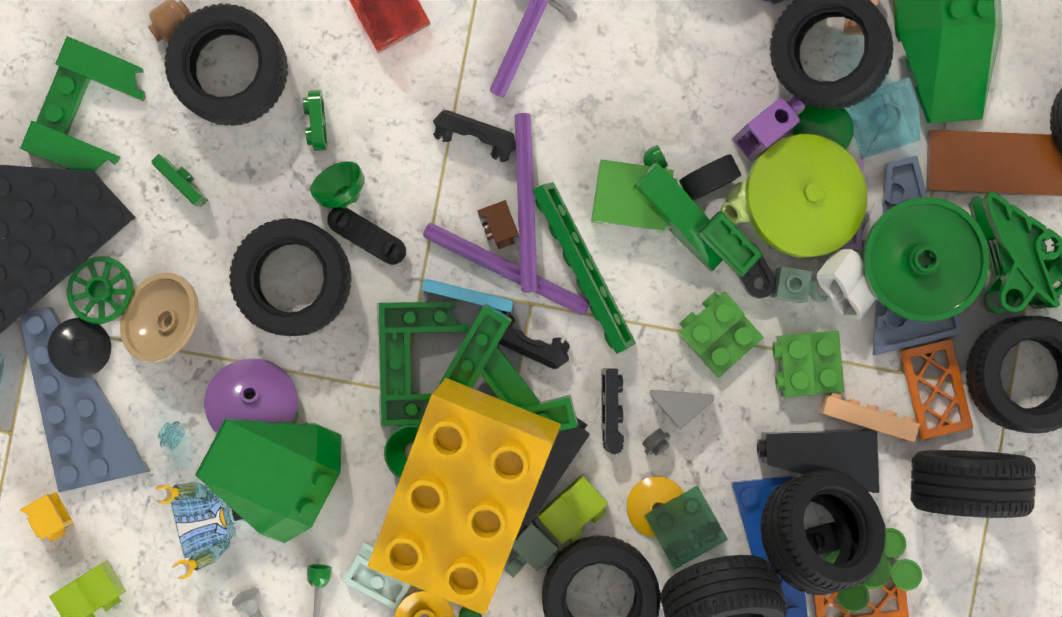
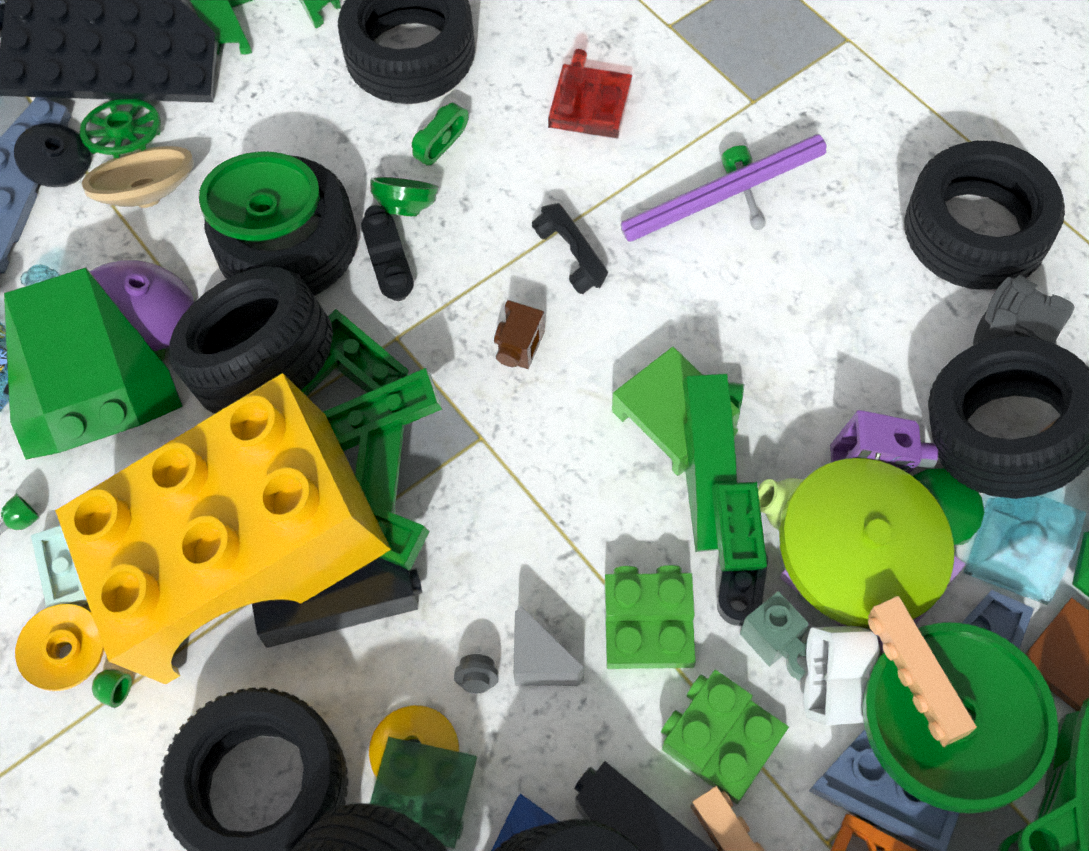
camera: 45 degrees right, 25 degrees down
(180, 179) = (277, 94): green plate -> none
(263, 268) = (259, 196): none -> green dish
(323, 367) = (248, 335): none -> black tyre
(467, 295) = (416, 360): medium azure tile -> none
(503, 267) = (489, 388): medium lavender axle -> none
(525, 196) = (559, 339): medium lavender axle -> none
(532, 547) = (241, 664): sand green brick -> none
(537, 350) = (449, 491): black piece -> none
(573, 509) = (322, 666): lime brick -> none
(588, 275) = (563, 442): green plate -> none
(610, 410) = (458, 600): black hinge -> none
(710, 177) = (774, 447): black tyre -> none
(893, 257) = (920, 672): none -> light nougat piece

